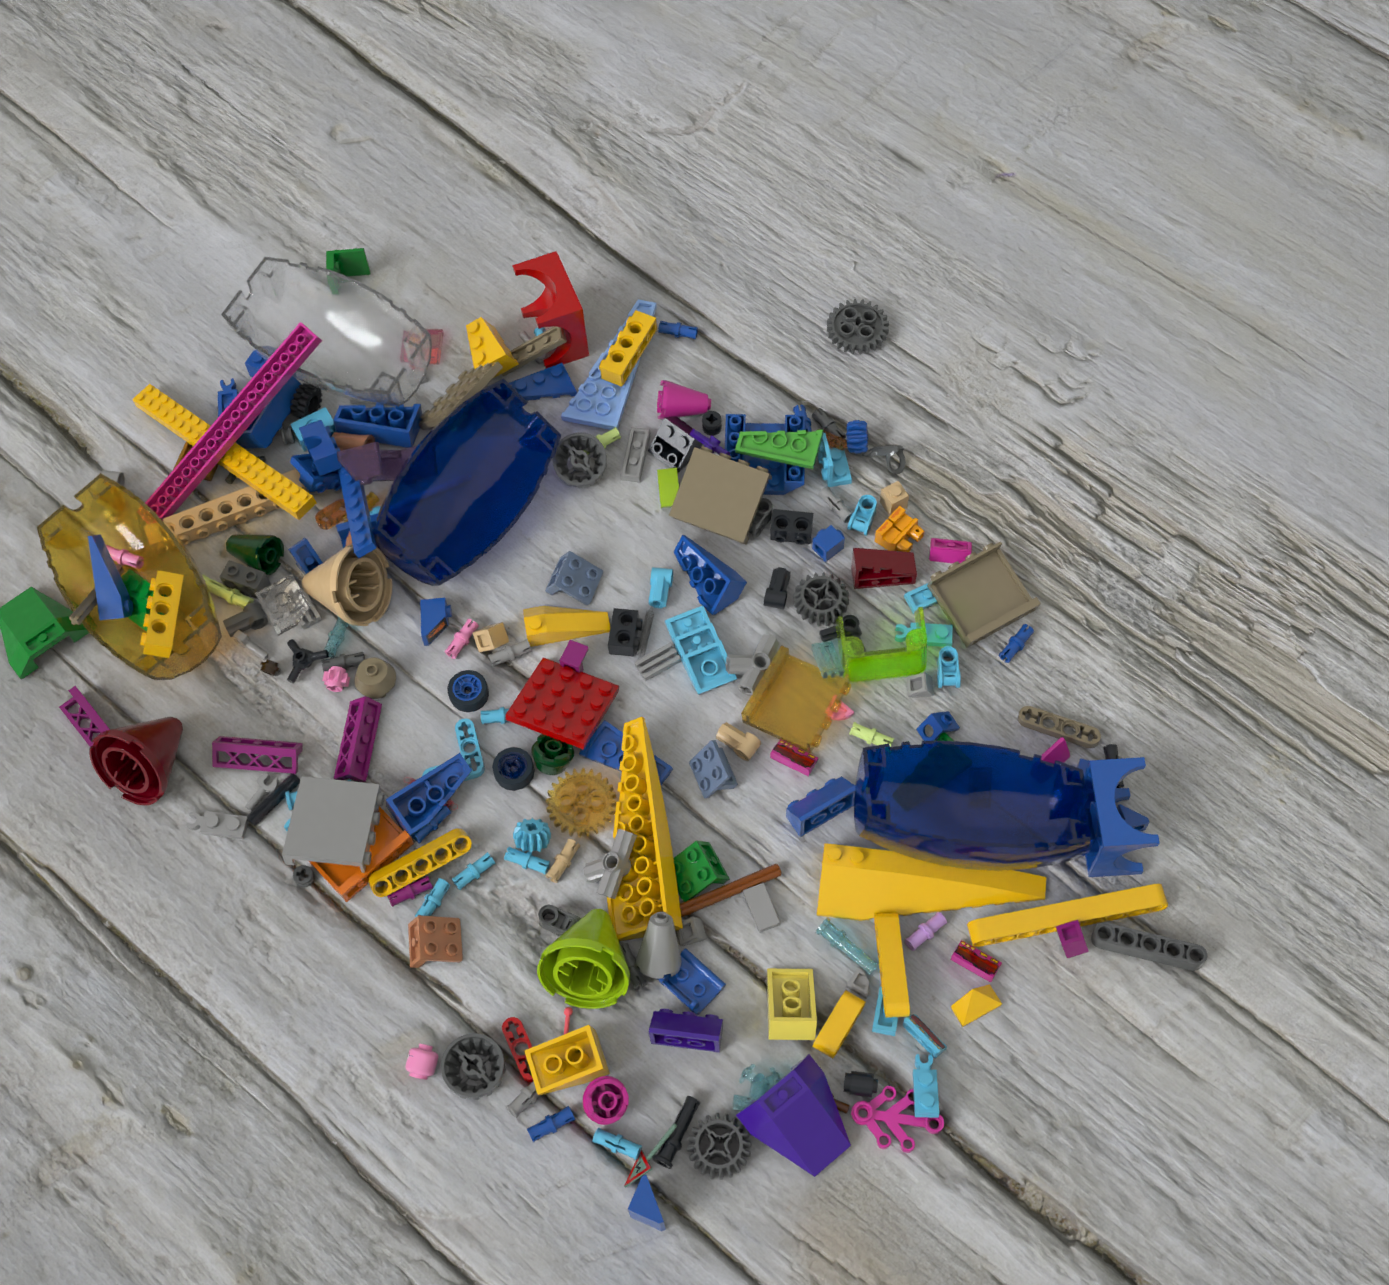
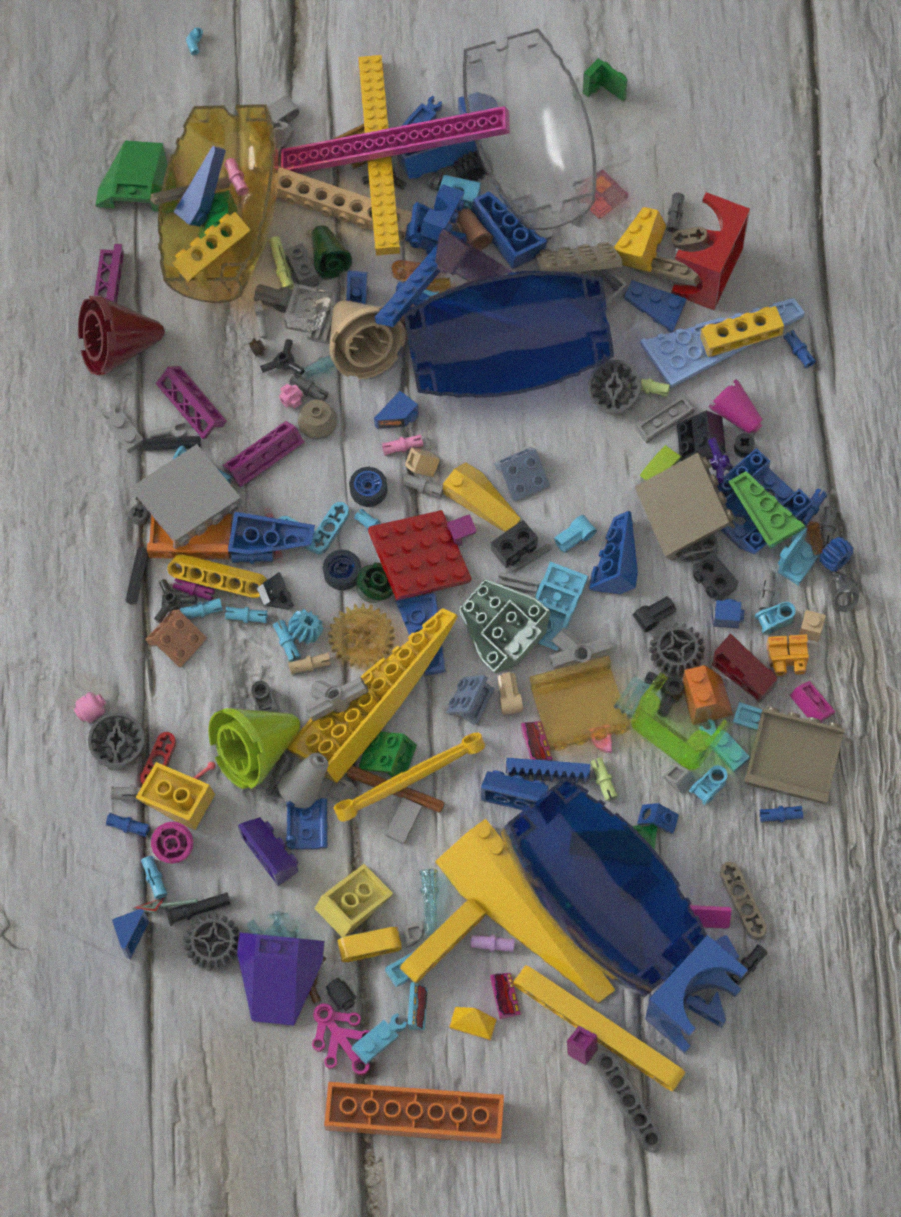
camera: 45 degrees right, 5 degrees up
(351, 924) = (136, 576): none -> black axle
(401, 916) = (172, 600): none -> pearl dark grey piece
(481, 832) = (275, 594): none -> black wing
(491, 313) = (675, 212): none -> dark grey pin
(520, 320) = (690, 238): none -> dark tan beam
(679, 693) = (503, 624): none -> sand green wedge
(714, 938) = (349, 808): none -> yellow piece
(825, 766) = (547, 768): none -> blue gear
(877, 612) = (705, 695): none -> orange slope
(1014, 1116) = (414, 1112): none -> orange brick

